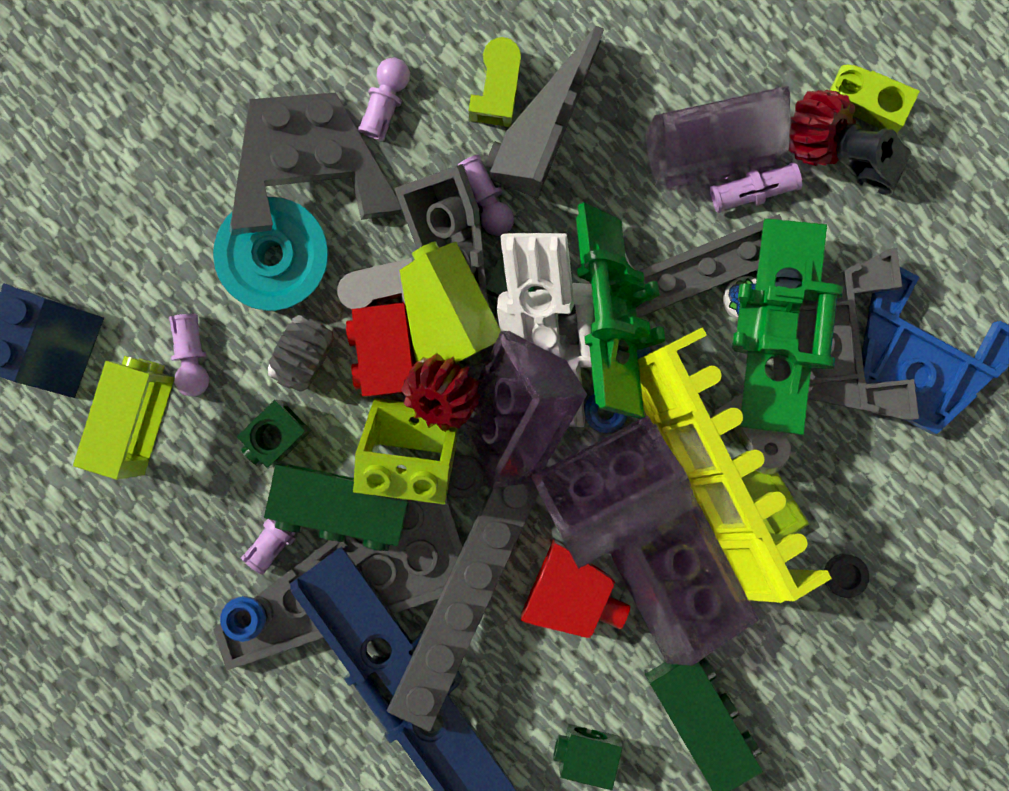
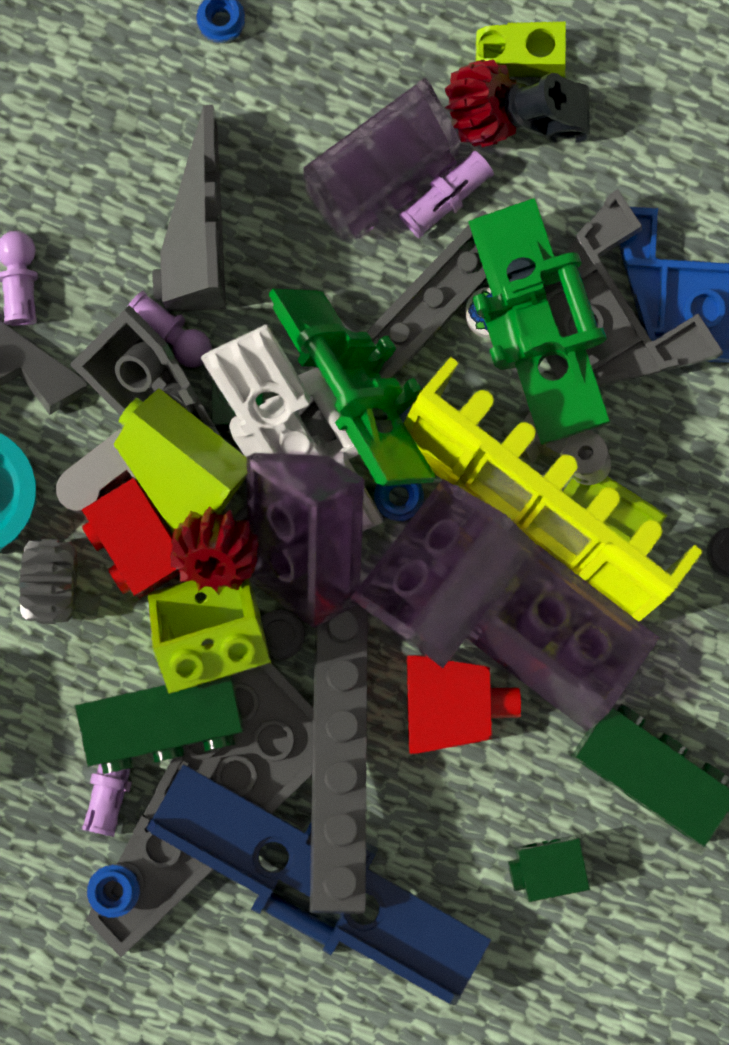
camera: 20 degrees left, 5 degrees down
(291, 428) = (48, 660): dark green brick -> none
(502, 72) = (136, 220): lime leg -> none

